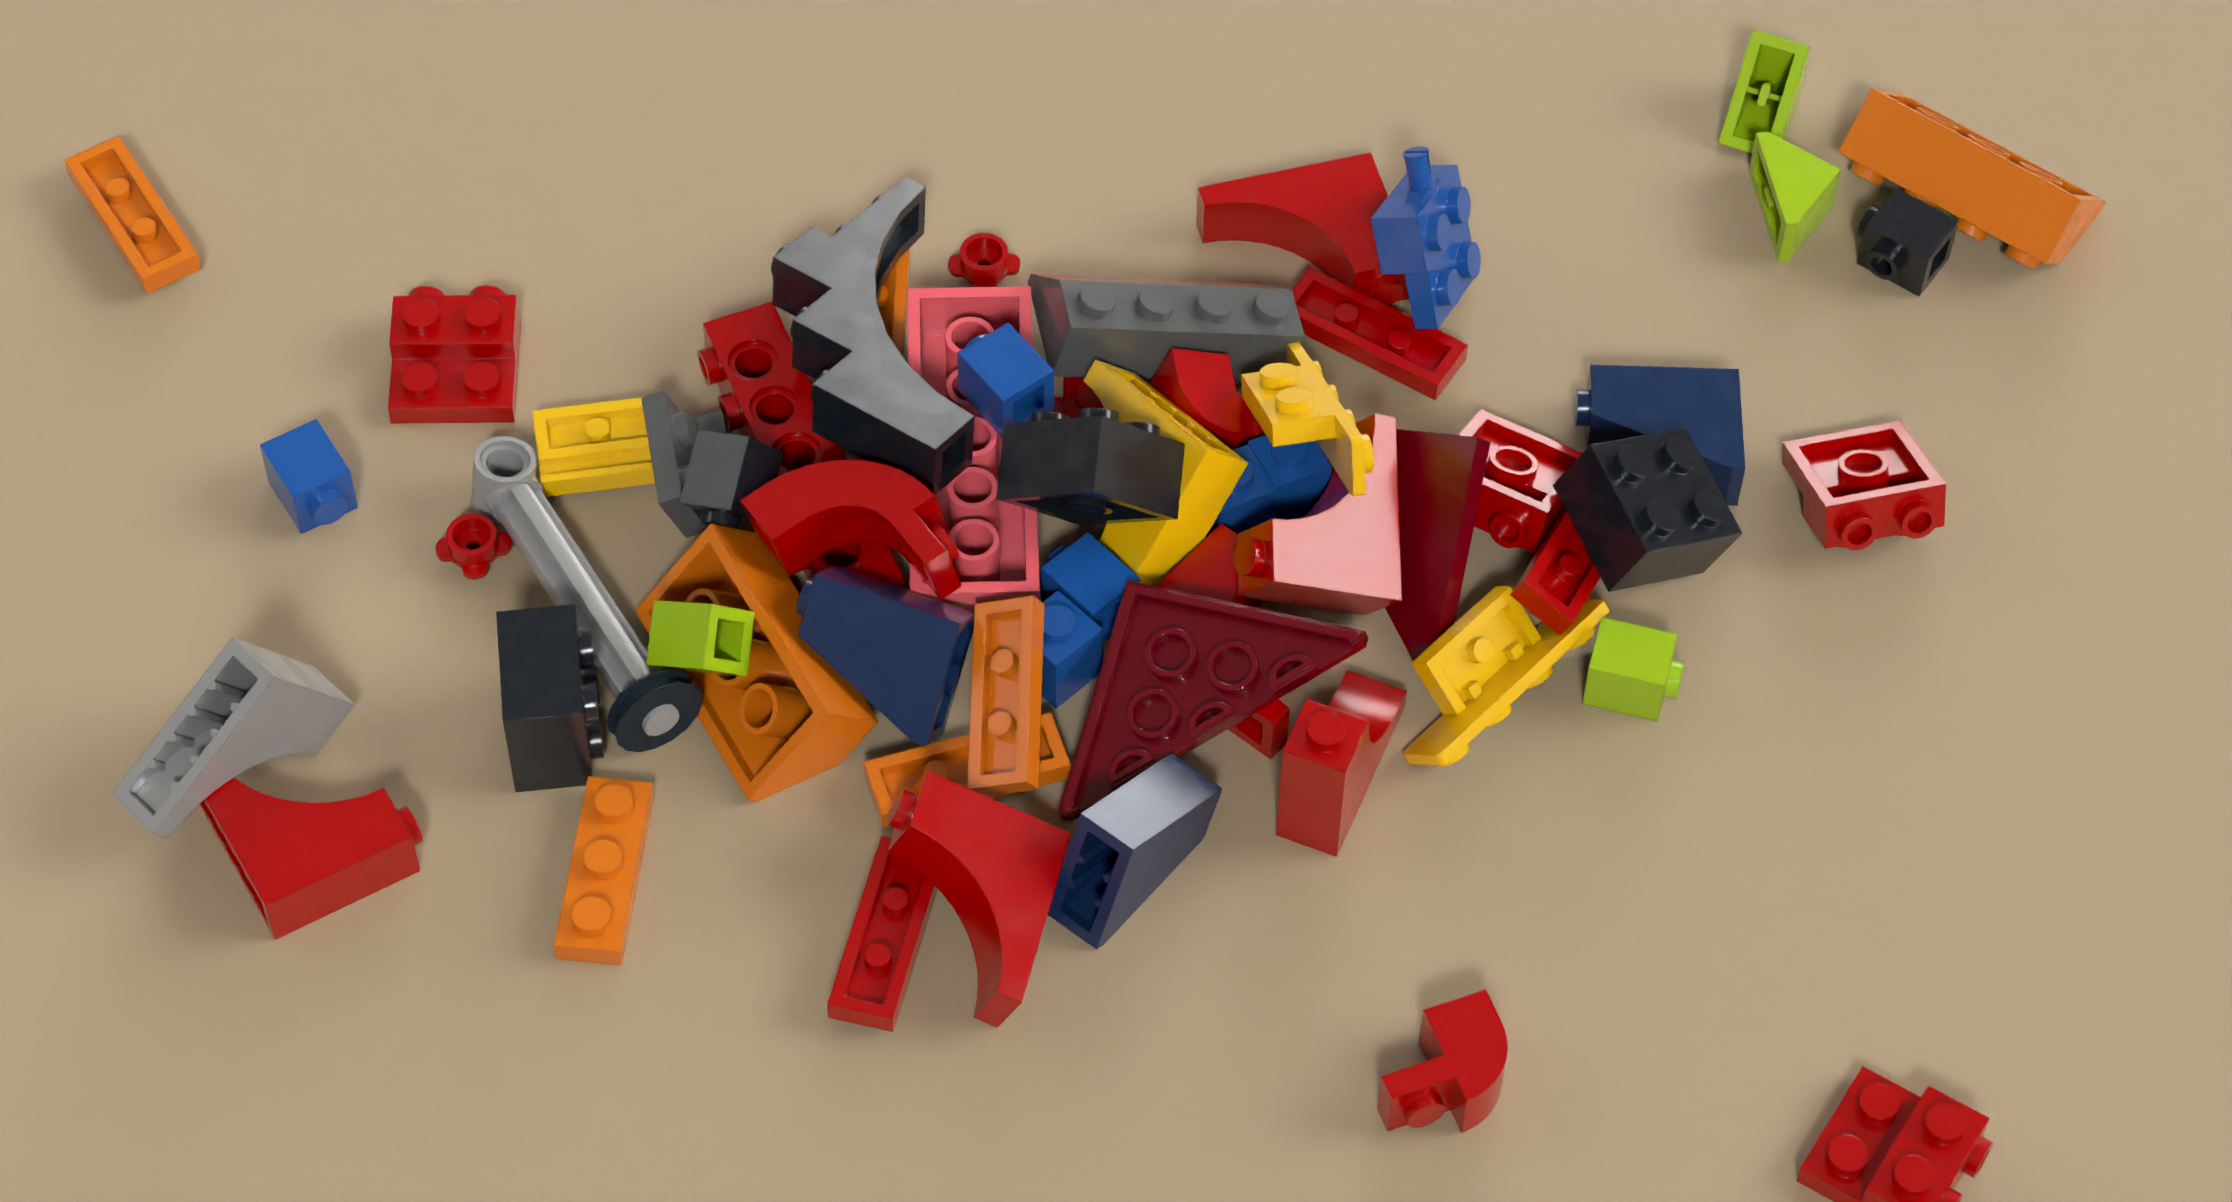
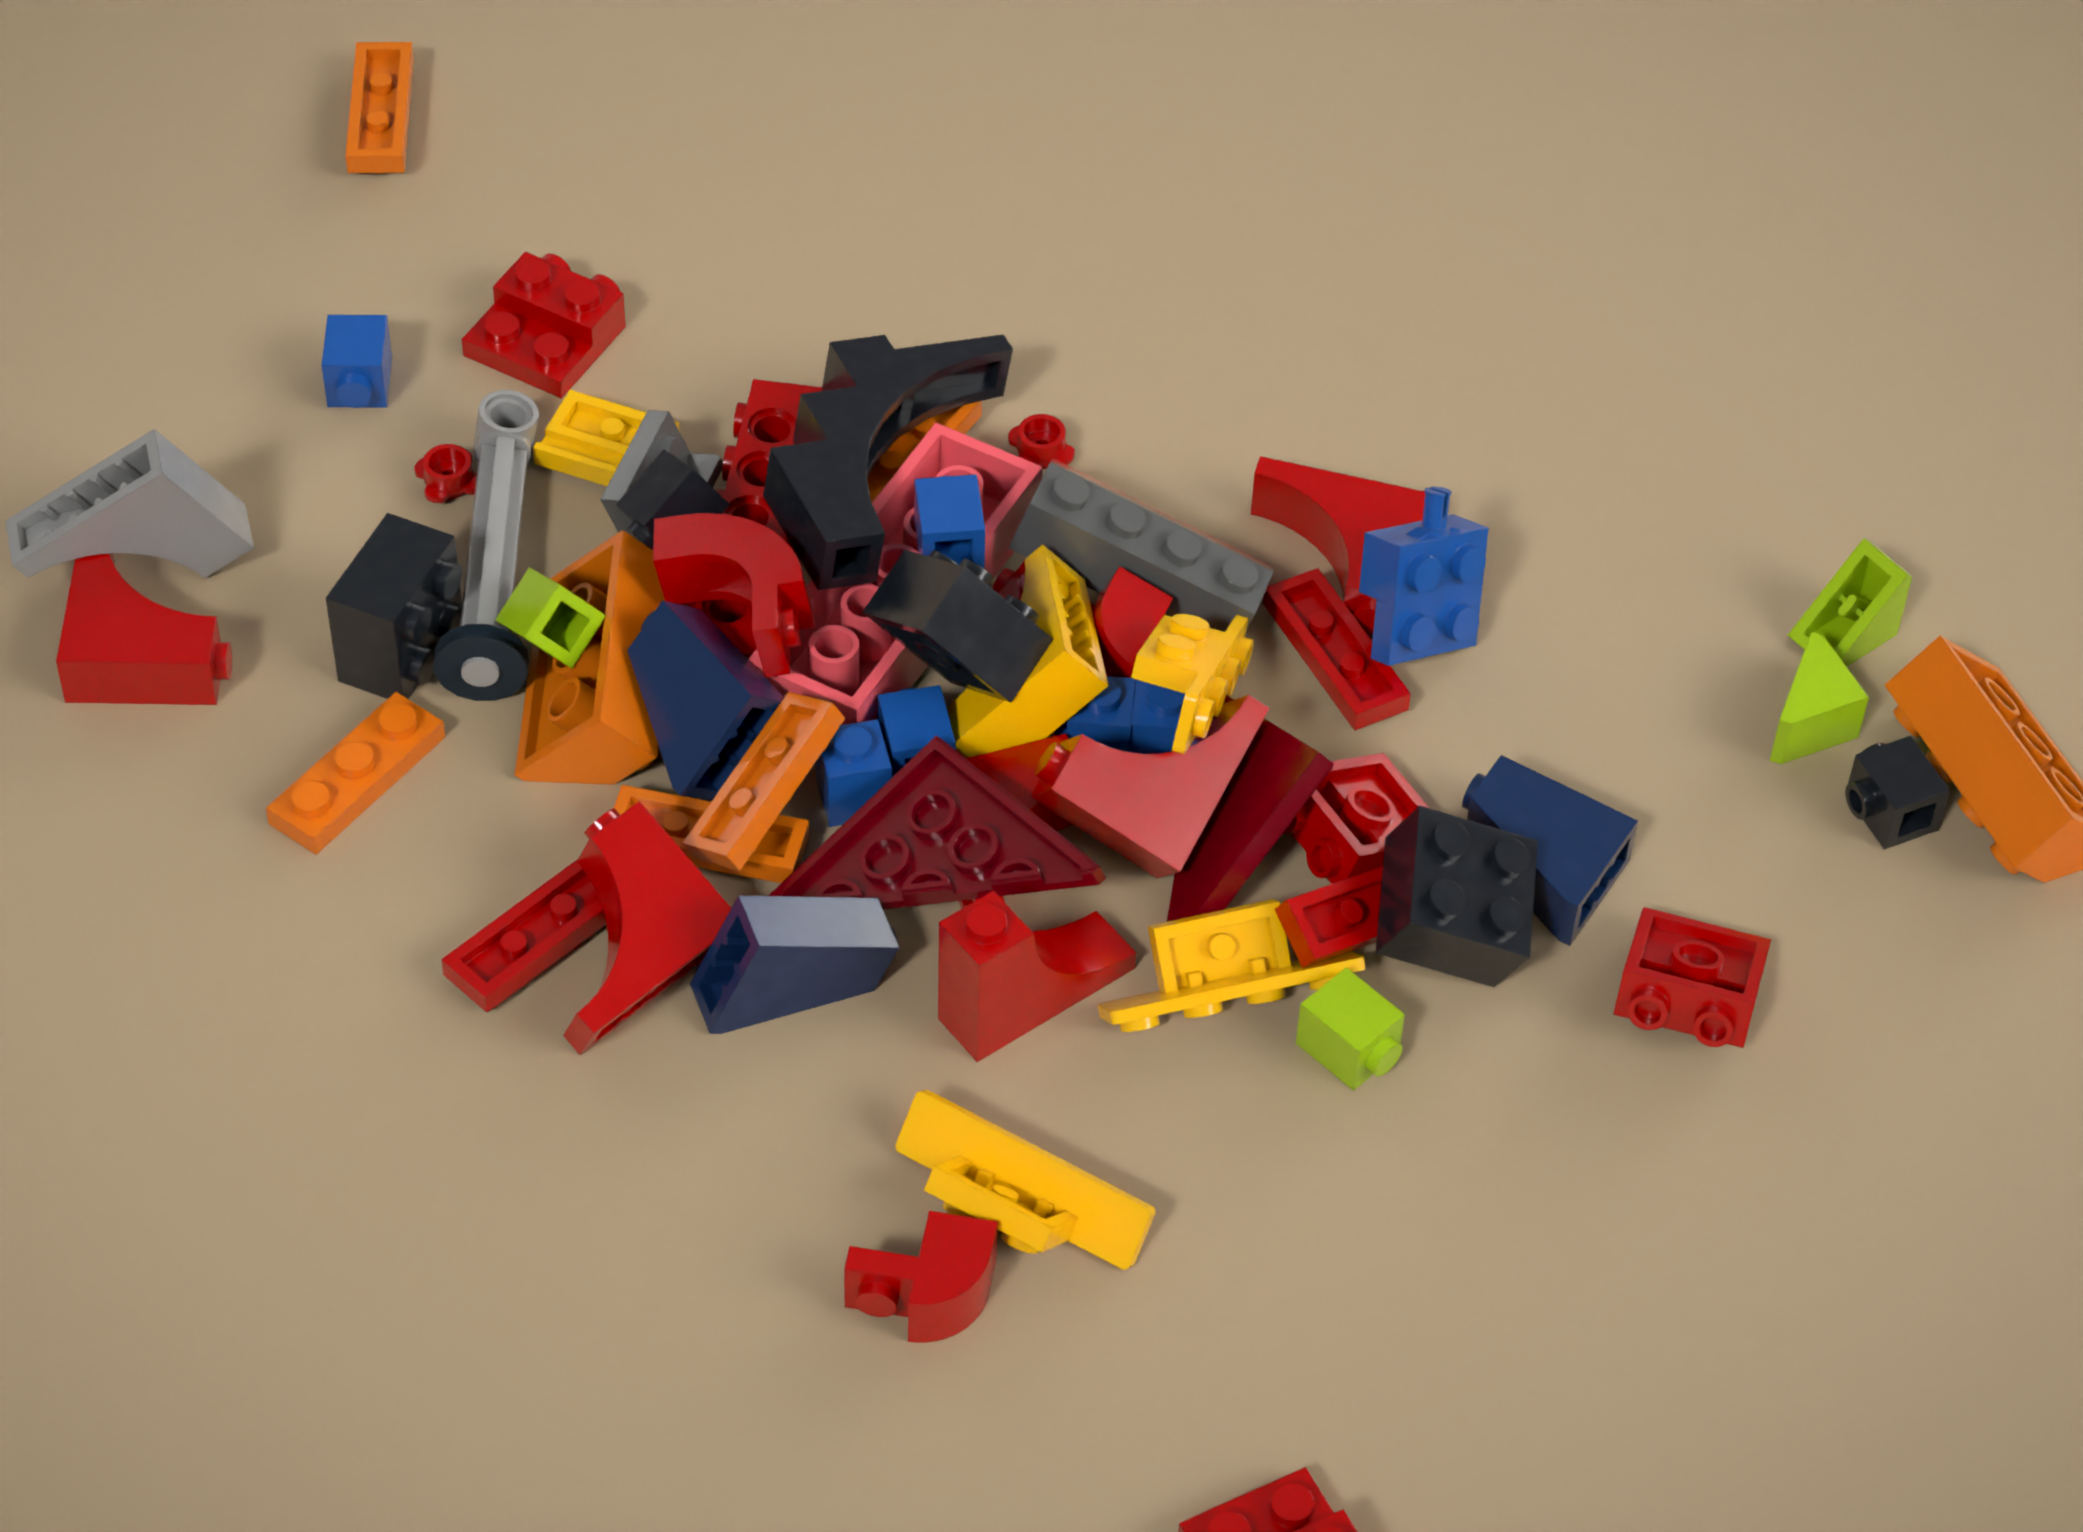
camera: 30 degrees right, 5 degrees down
(1463, 948) = (1027, 1190): none -> yellow bracket

